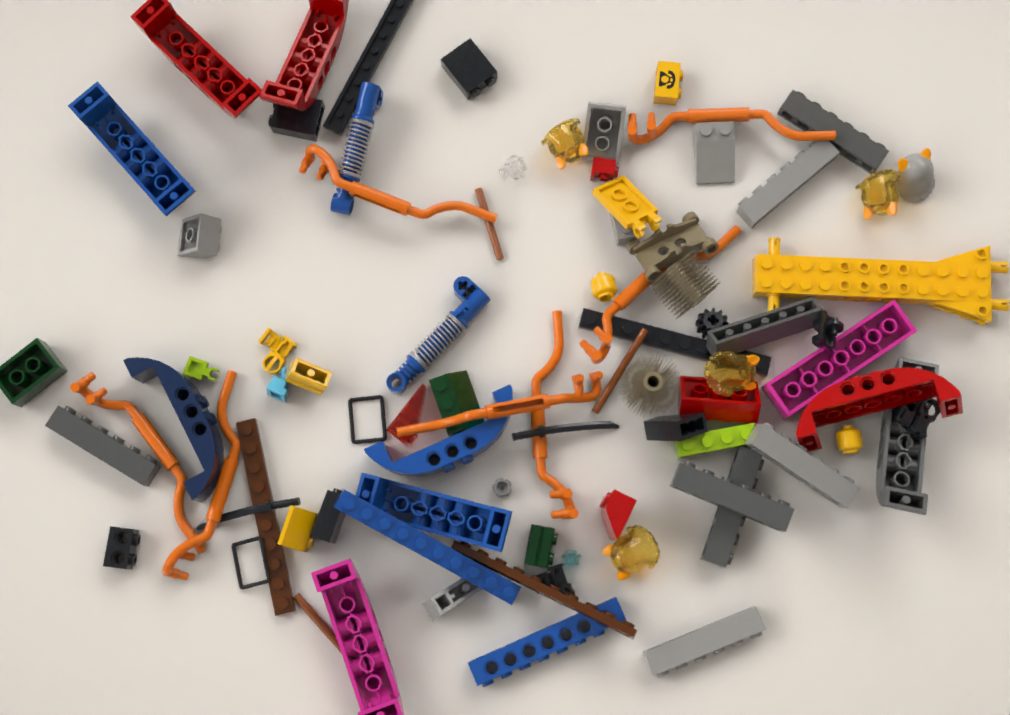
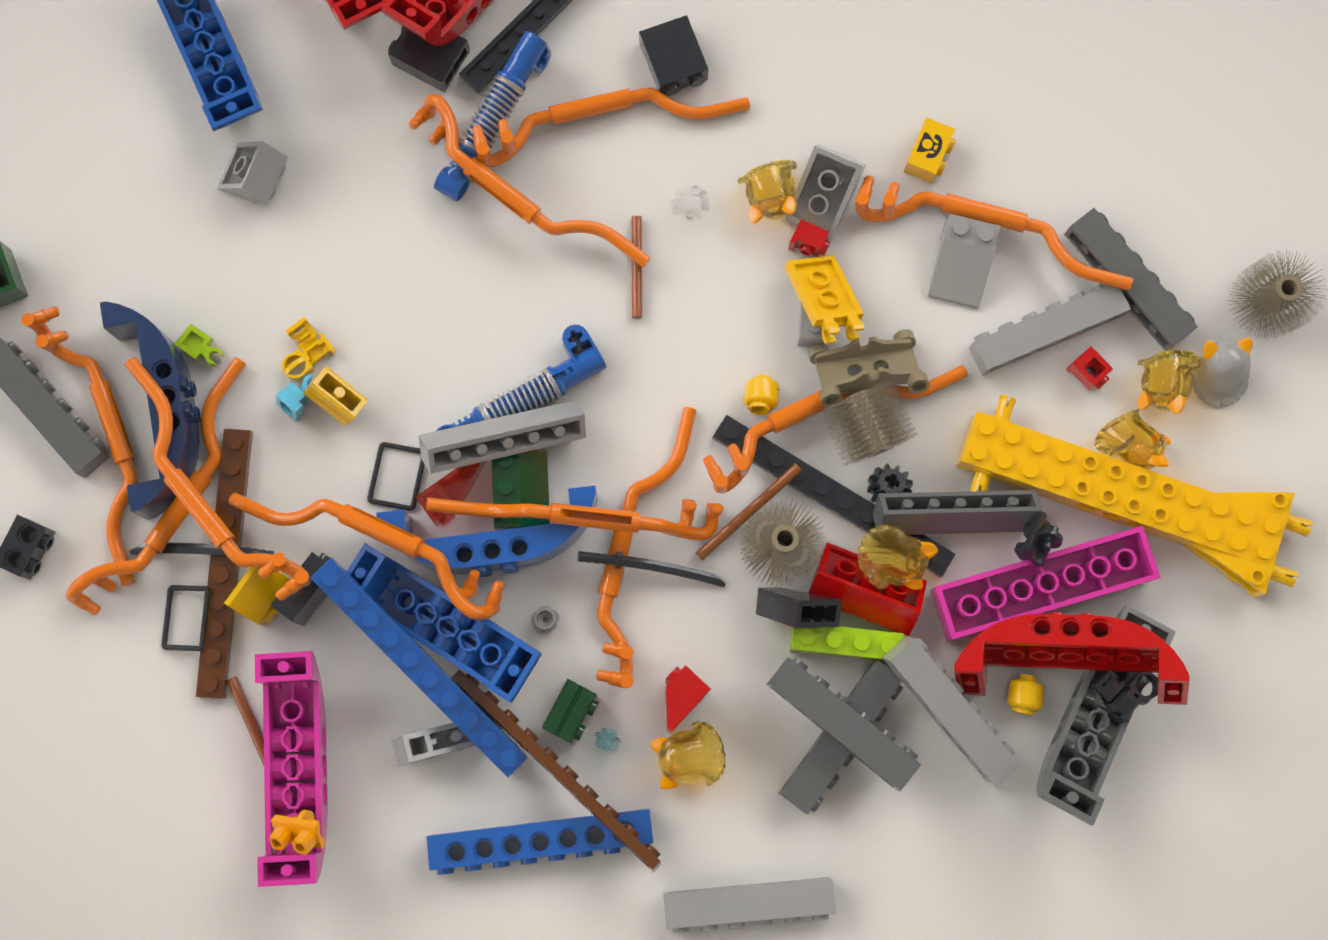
camera: 10 degrees right, 0 degrees up
(236, 480) = (199, 507): none -> orange piece
(376, 461) = (391, 536): none -> orange piece
(381, 685) = (300, 831): none -> light orange hips
(423, 121) = (591, 107): none -> orange piece
(434, 370) = (502, 436): none -> light grey brick
(556, 577) = (578, 760): black piece -> none
(827, 197) = (1096, 363): none -> red brick
(869, 243) = (1133, 441): none -> clear yellow hair
(936, 113) = (1277, 295): none -> dark tan piece

